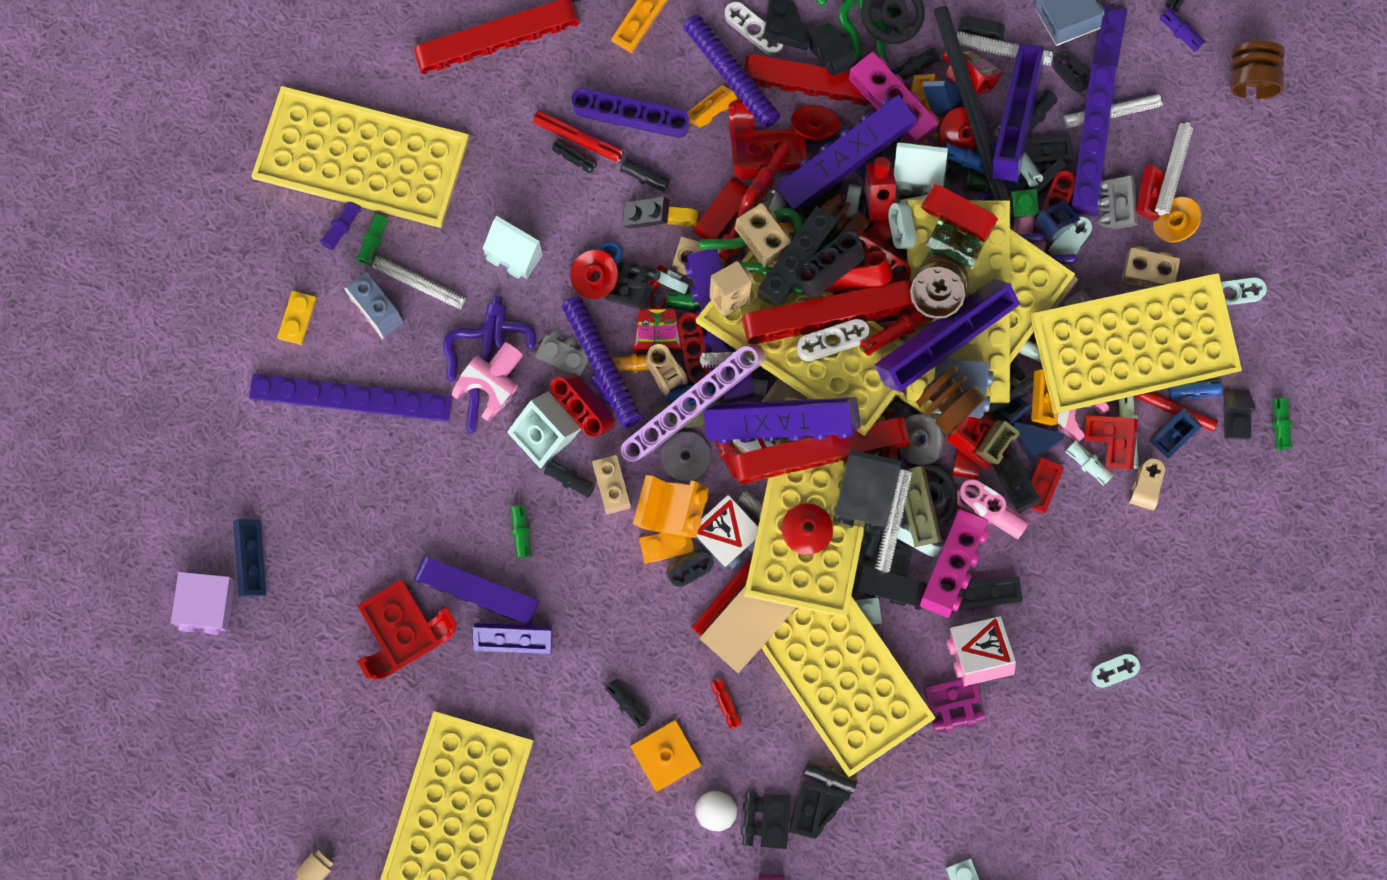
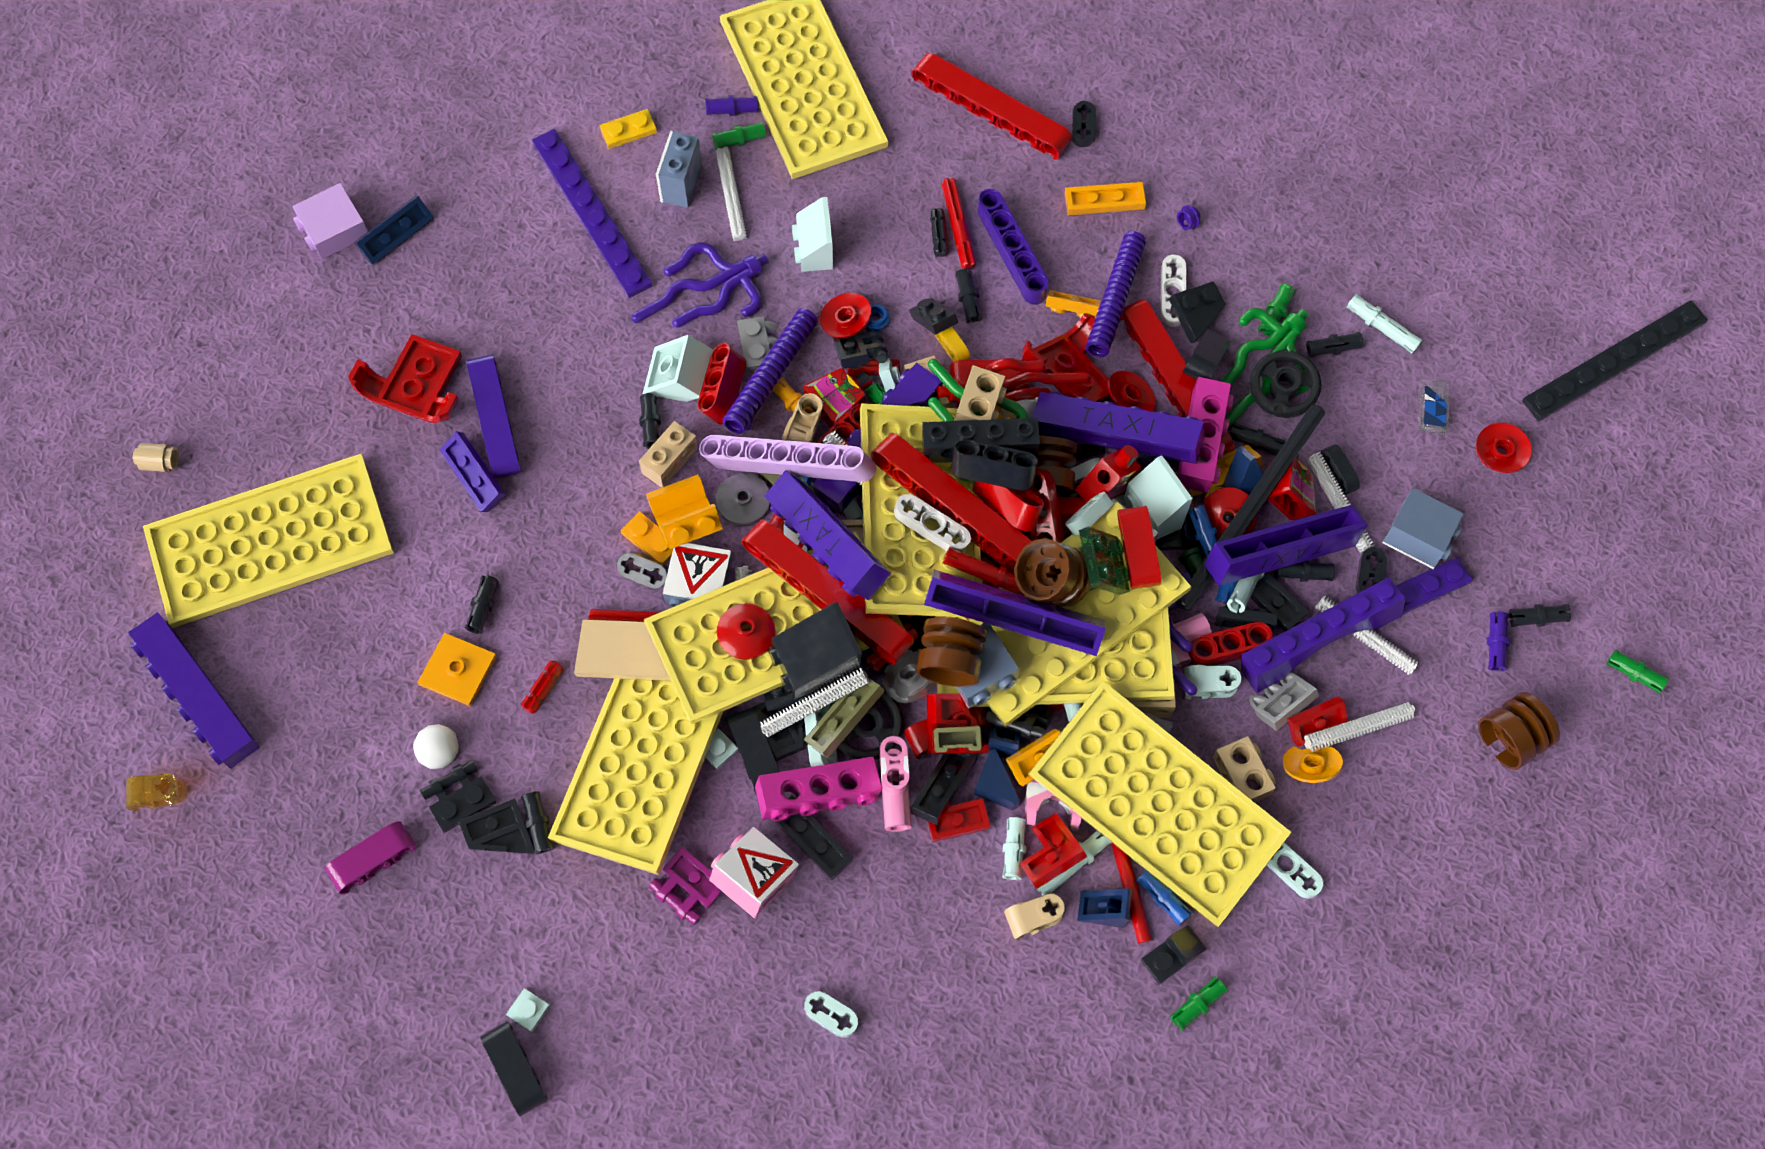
camera: 50 degrees right, 10 degrees down
(491, 378) = (687, 297): bright pink connector -> none
(520, 531) = (573, 414): green pin -> none
(730, 288) = (906, 405): tan brick -> none
(1025, 203) = (1207, 613): green plate -> none
(1056, 220) = (1214, 648): dark blue slope -> none

